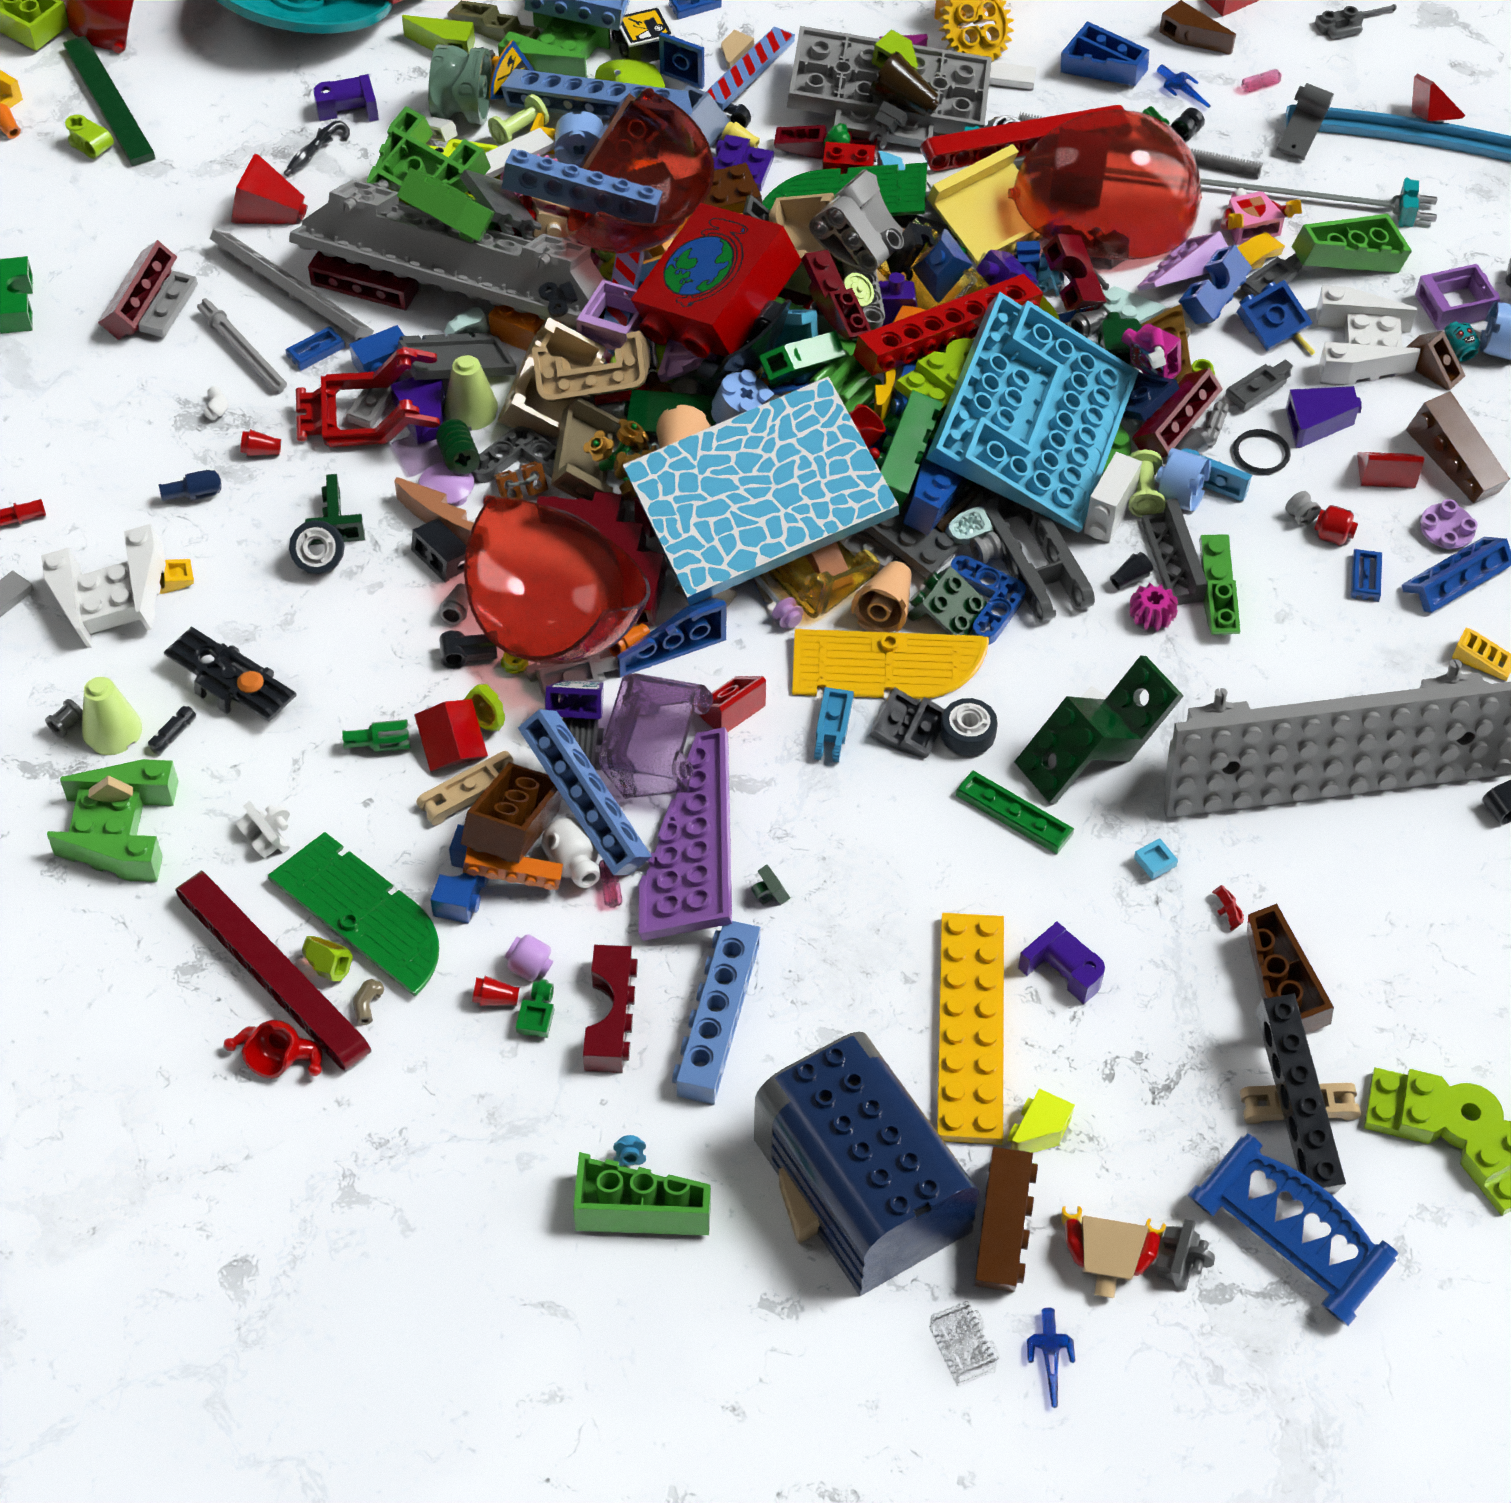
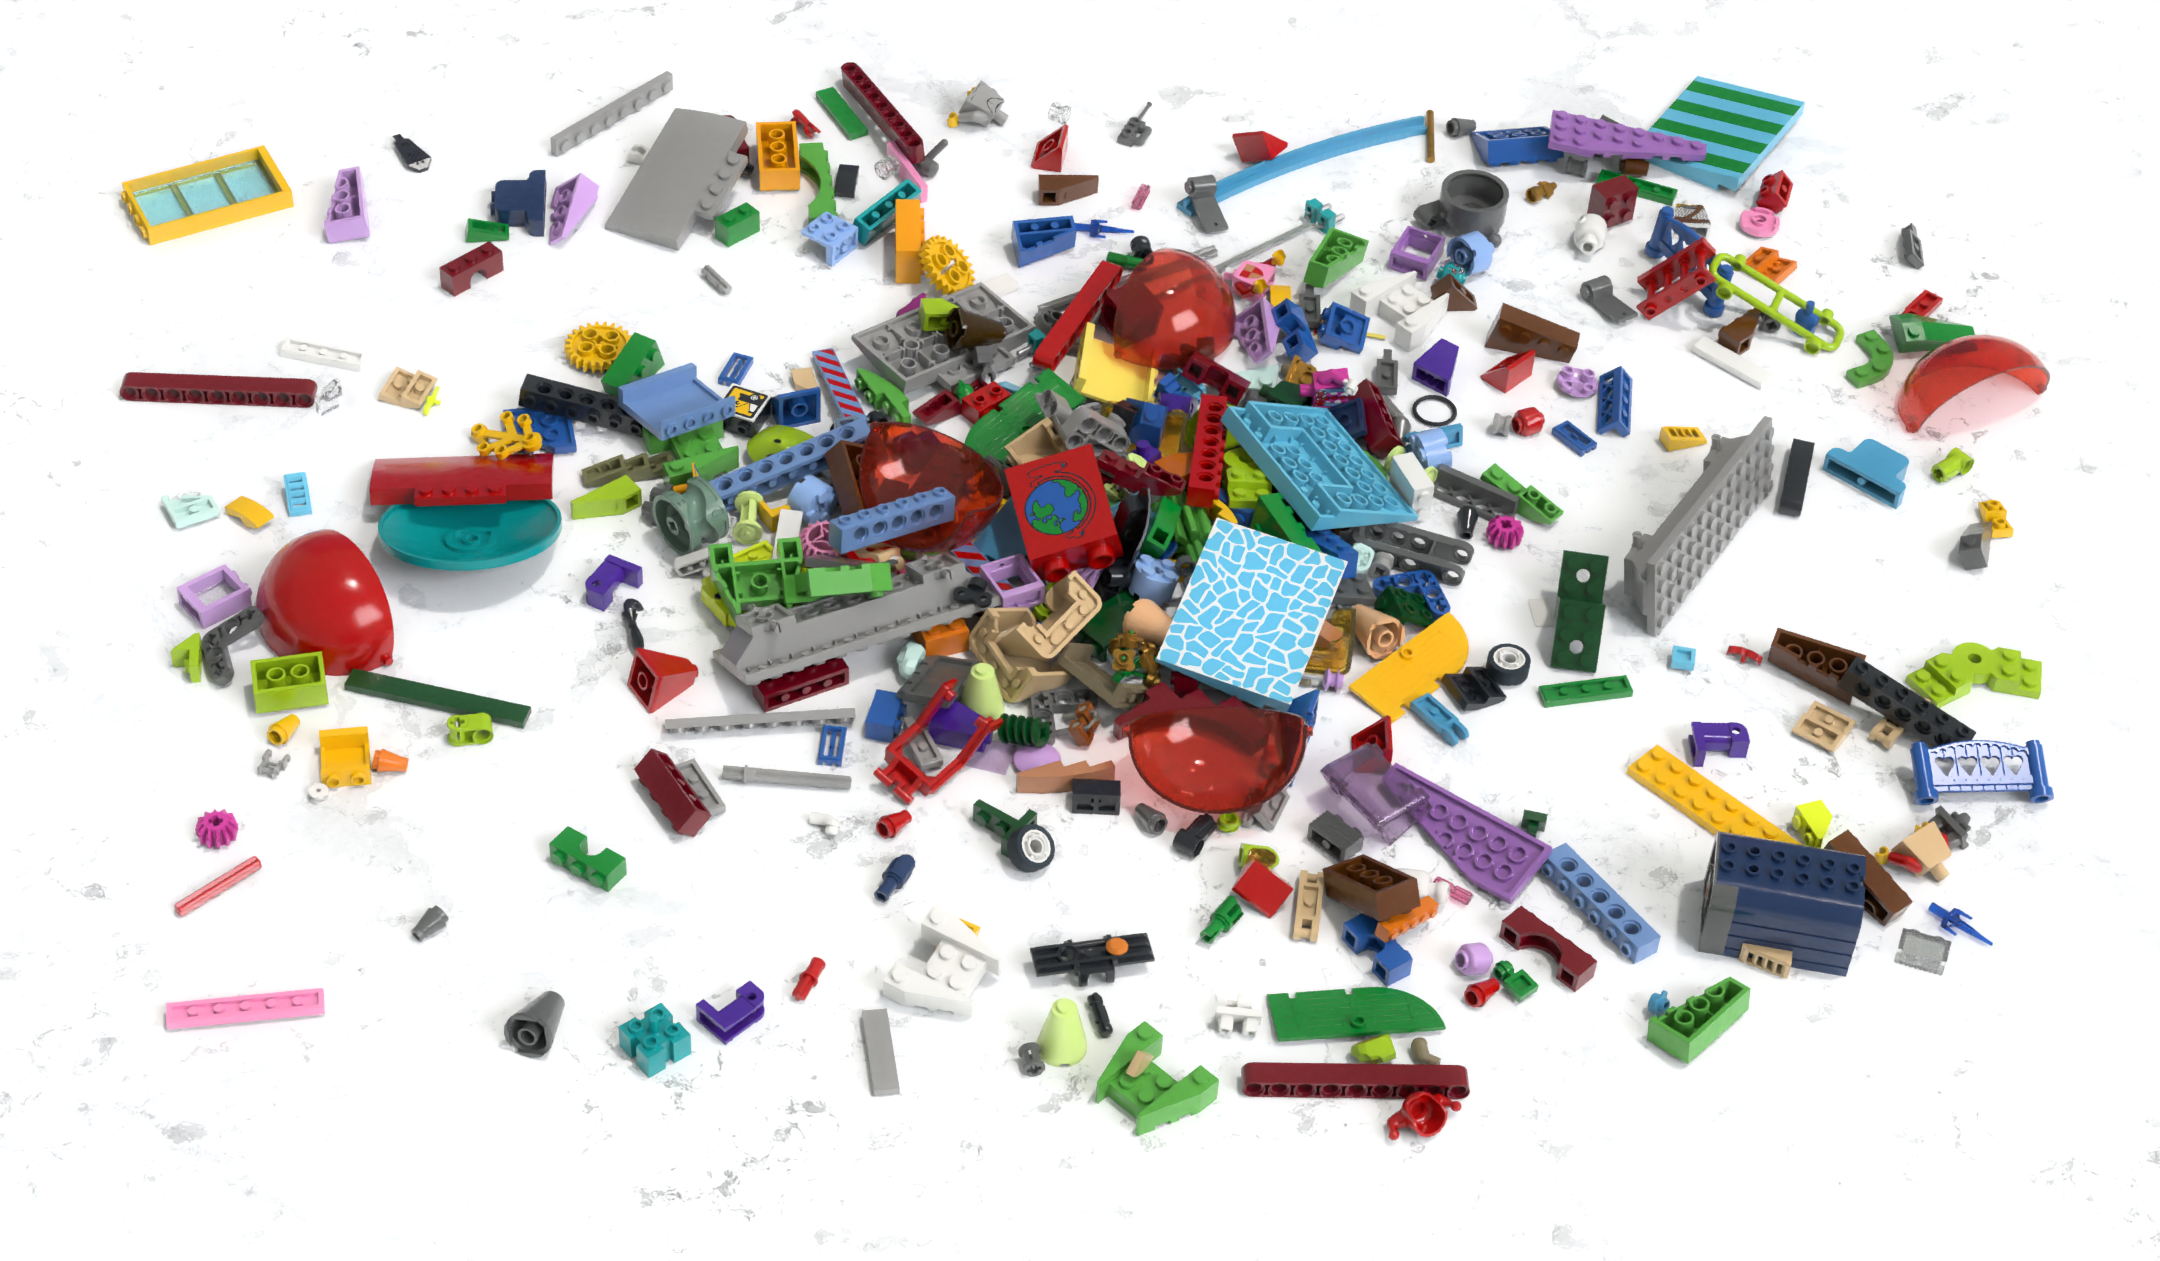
camera: 50 degrees left, 10 degrees down
(577, 699) = (1304, 810): dark purple torso -> none
(584, 792) = (1388, 847): medium blue brick -> none
(772, 102) = (883, 395): none -> bright green slope
(1205, 1043) = (1824, 726): none -> tan slope

